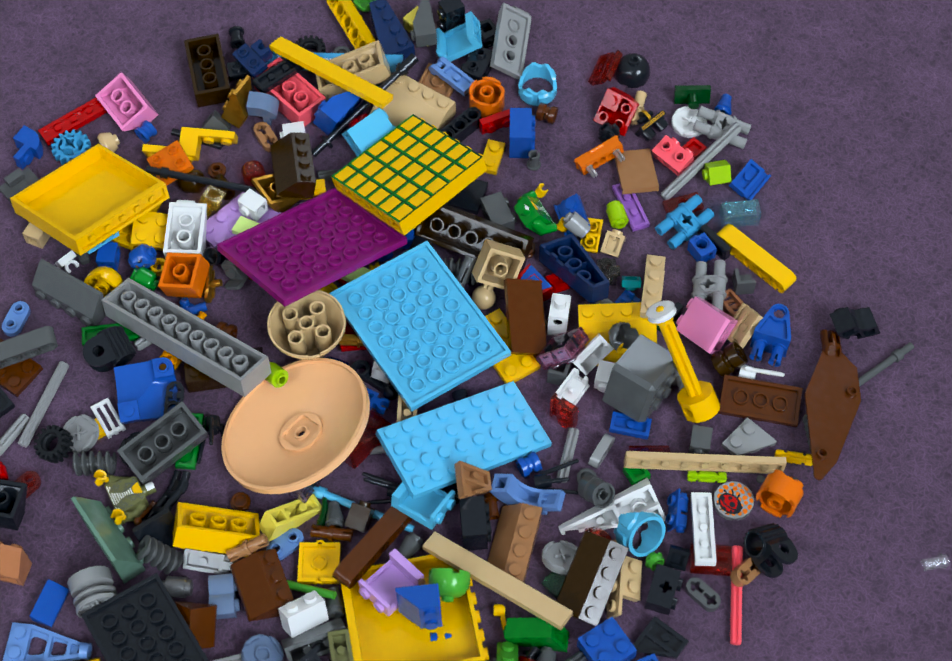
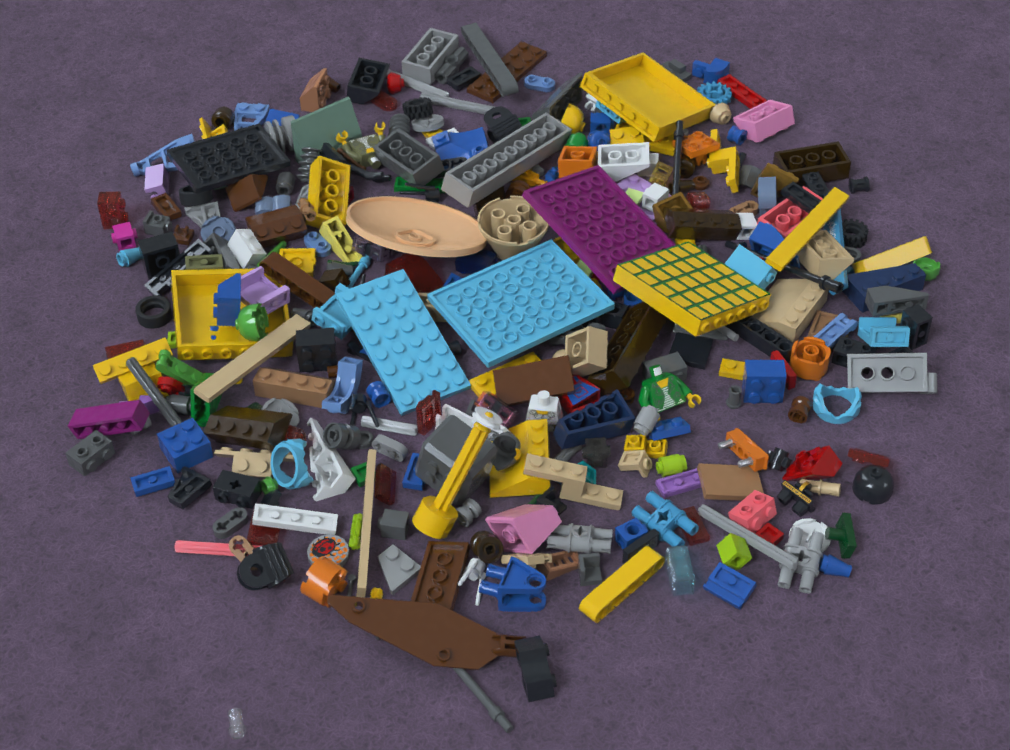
camera: 90 degrees right, 15 degrees down
(253, 58) = (821, 180): dark blue plate -> none
(278, 376) = (469, 215): lime brick -> none
(331, 533) = (320, 264): reddish brown pin -> none
(471, 480) = (349, 334): medium nougat wing -> none
(677, 503) = (327, 504): blue hinge -> none

